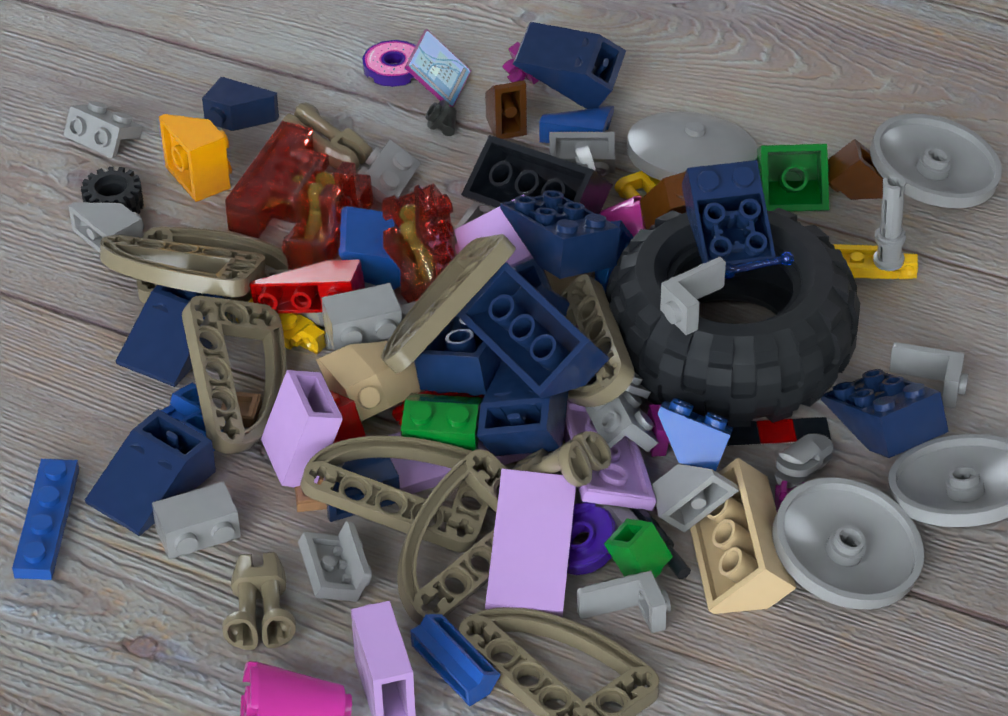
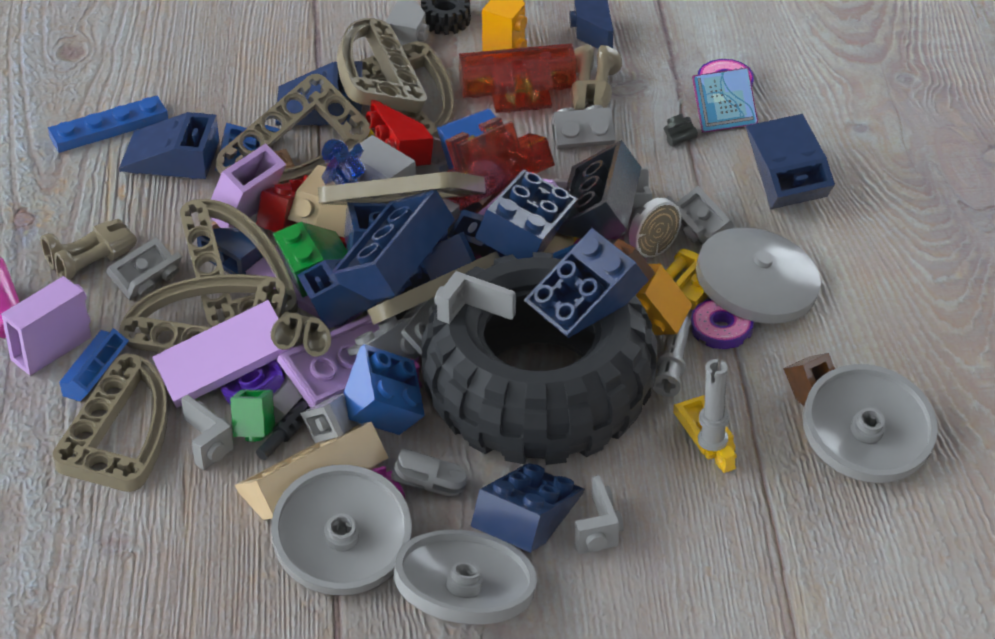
camera: 60 degrees right, 0 degrees up
(196, 520) = (144, 187): light grey brick -> none
(318, 212) = (502, 94): clear red piece -> none
(360, 328) = (342, 165): none -> clear blue hips
(507, 109) = (708, 154): reddish brown slope -> none
(585, 120) = (740, 203): blue slope -> none
(778, 432) = (473, 462): sticker -> none
(786, 258) = (531, 314): clear blue hinge -> none
(794, 177) = (772, 343): green slope -> none

